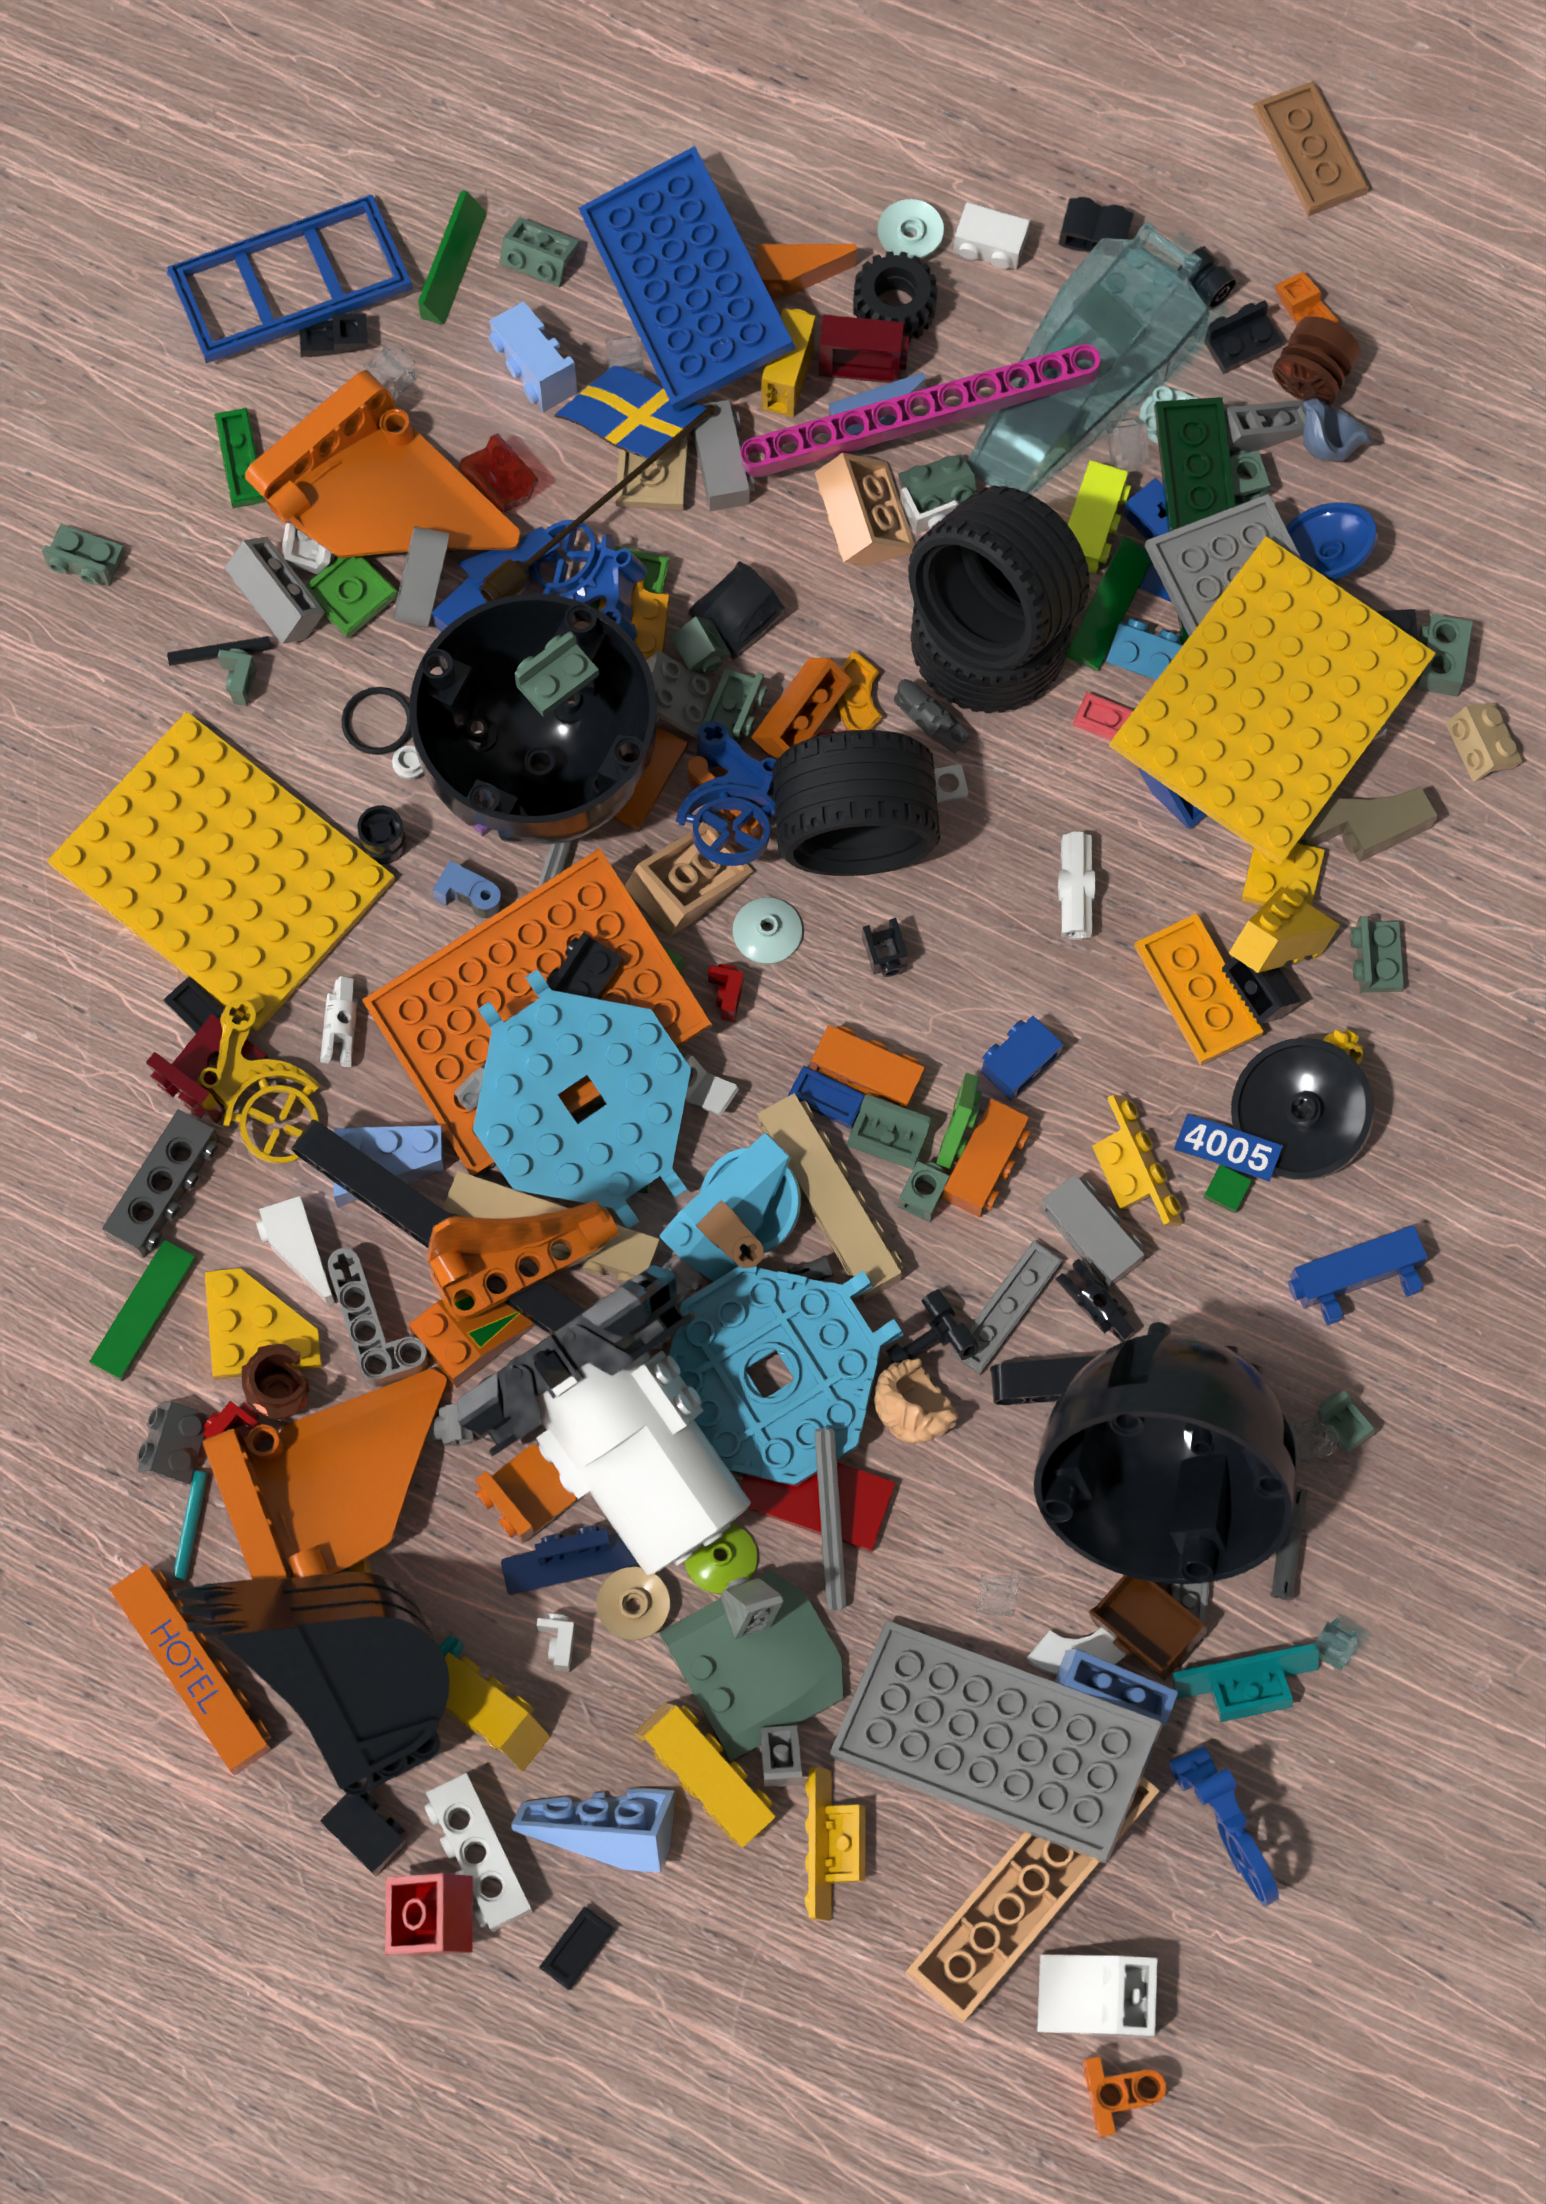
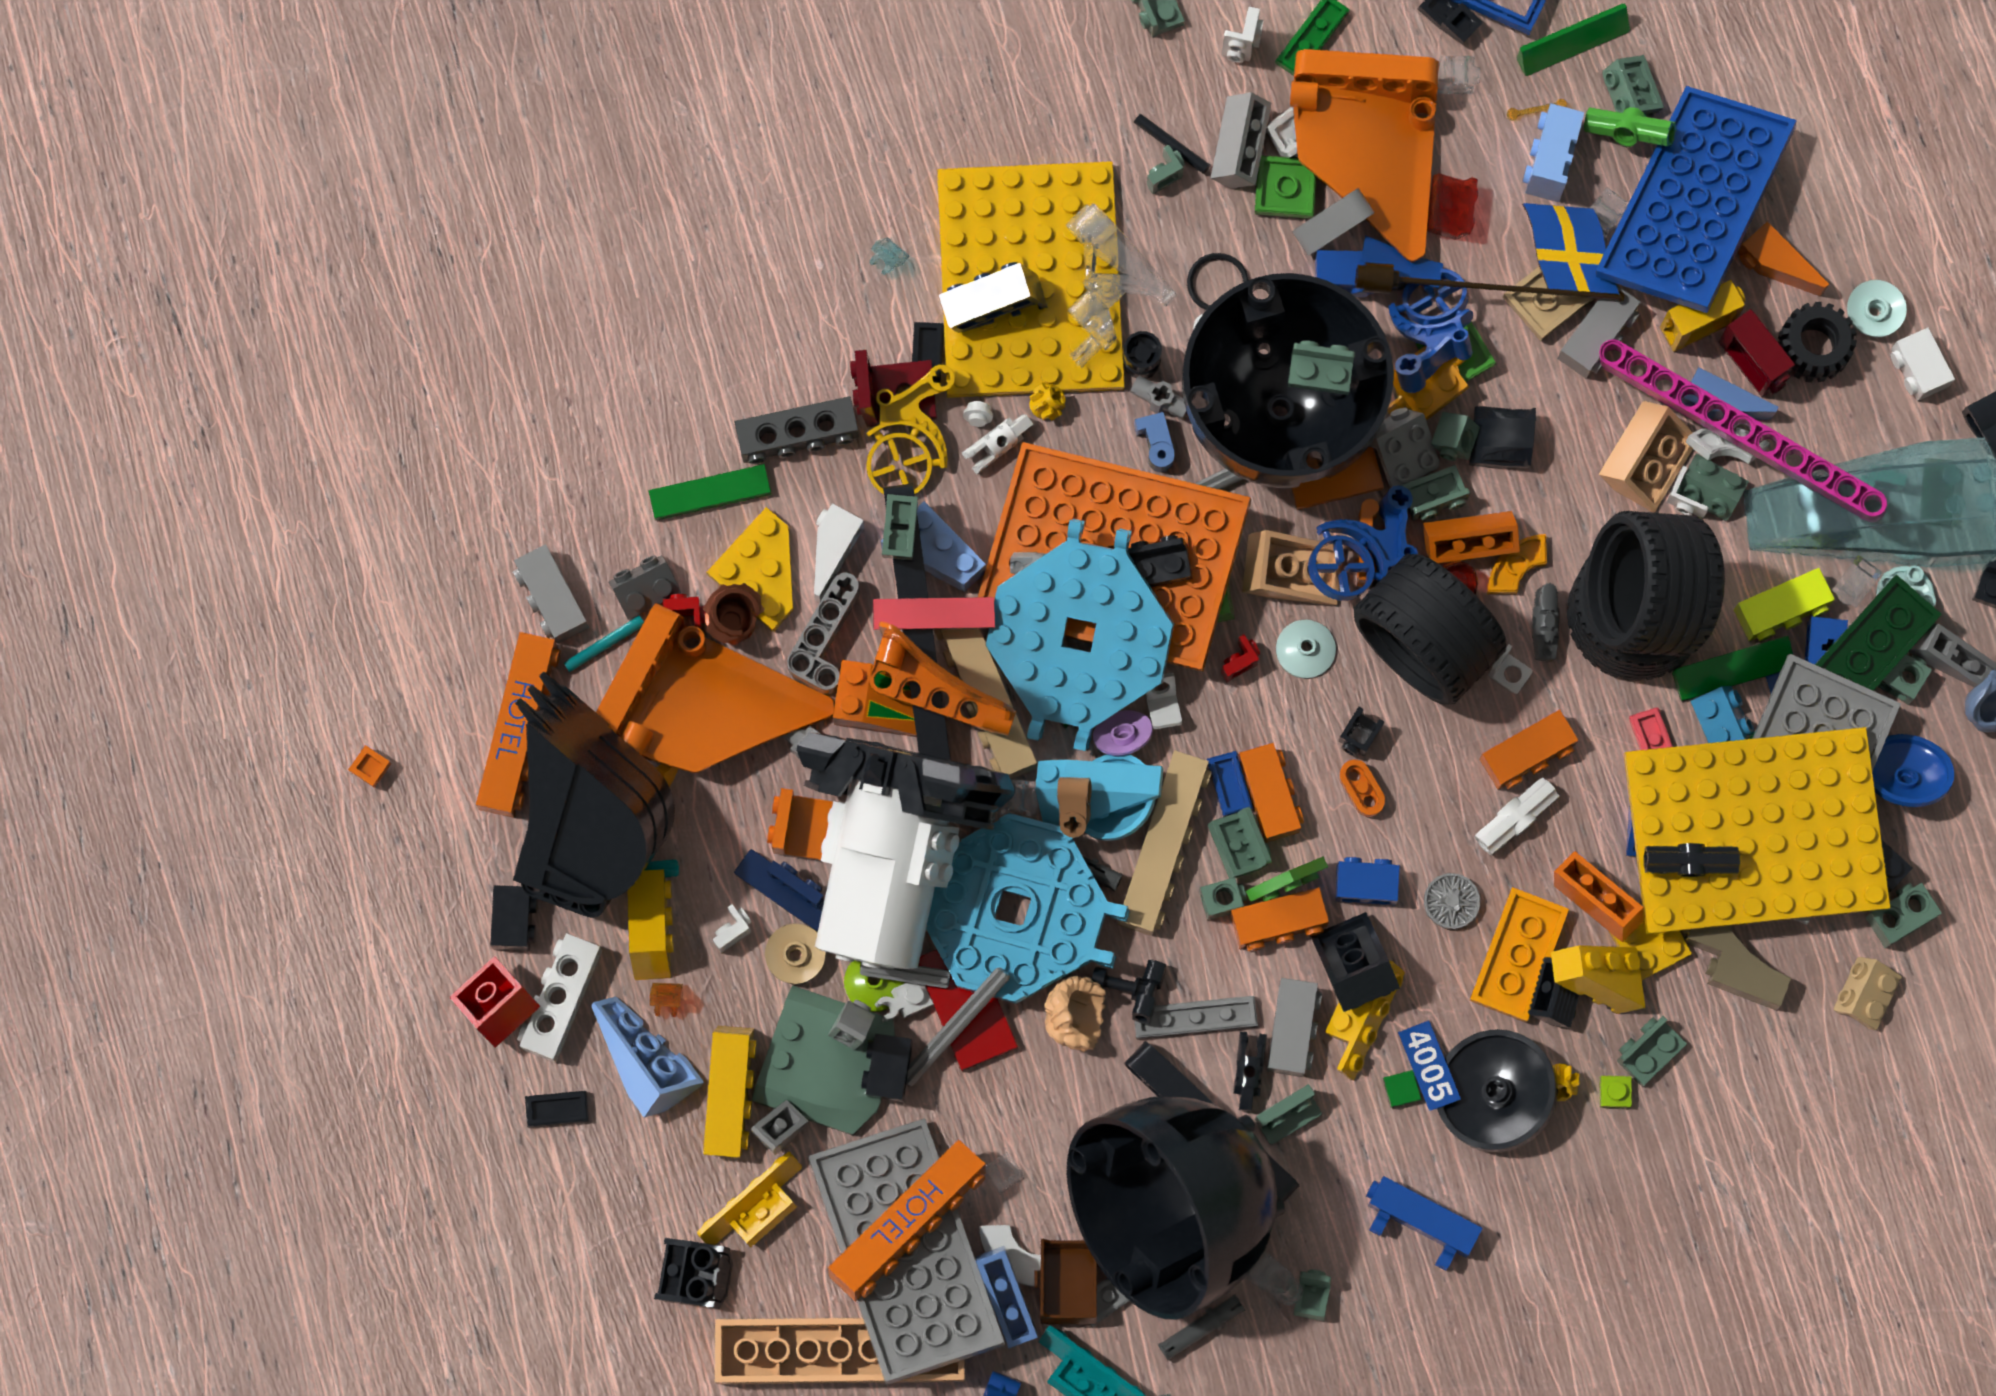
camera: 50 degrees right, 5 degrees up
(82, 965) = (889, 253): none -> clear light blue tile
(99, 1533) = (549, 594): none -> light grey brick
(100, 1839) = (369, 766): none -> orange plate
(190, 514) = (1239, 46): none -> white bracket
(209, 911) = (991, 297): none -> wedge
(258, 768) = (1138, 277): none -> clear connector
(298, 1017) = (978, 413): none -> white plate
(344, 1160) = (900, 527): none -> sand green brick
(345, 949) = (1047, 401): none -> yellow gear
(419, 857) = (1148, 391): none -> light grey axle
(448, 1200) = (935, 613): none -> coral tile
(466, 361) = (1512, 113): none -> clear yellow hinge
(565, 1753) = (666, 995): none -> clear orange tile
(571, 277) = (1629, 127): none -> bright green piece
(701, 1144) = (1123, 733): none -> lavender dish
(759, 1507) = (920, 975): none -> light grey axle
(765, 1542) = (907, 999): none -> white plate
(815, 1610) = (888, 1067): none -> black brick
(843, 1954) = (695, 1273): none -> black slope
(904, 451) = (1712, 445): none -> white tile
(935, 986) = (1363, 788): none -> orange plate
(972, 1713) = (907, 1220): none -> orange brick
(1029, 825) = (1529, 750): none -> orange brick
(1085, 1125) = (1355, 962): none -> black slope
(1100, 1003) = (1451, 901): none -> light grey wheel
(1167, 1296) = (1288, 1115): none -> sand green bracket
(1210, 877) = (1598, 896): none -> orange brick
(1255, 768) = (1691, 860): none -> black piece
(1387, 1015) = (1615, 1091): none -> lime plate

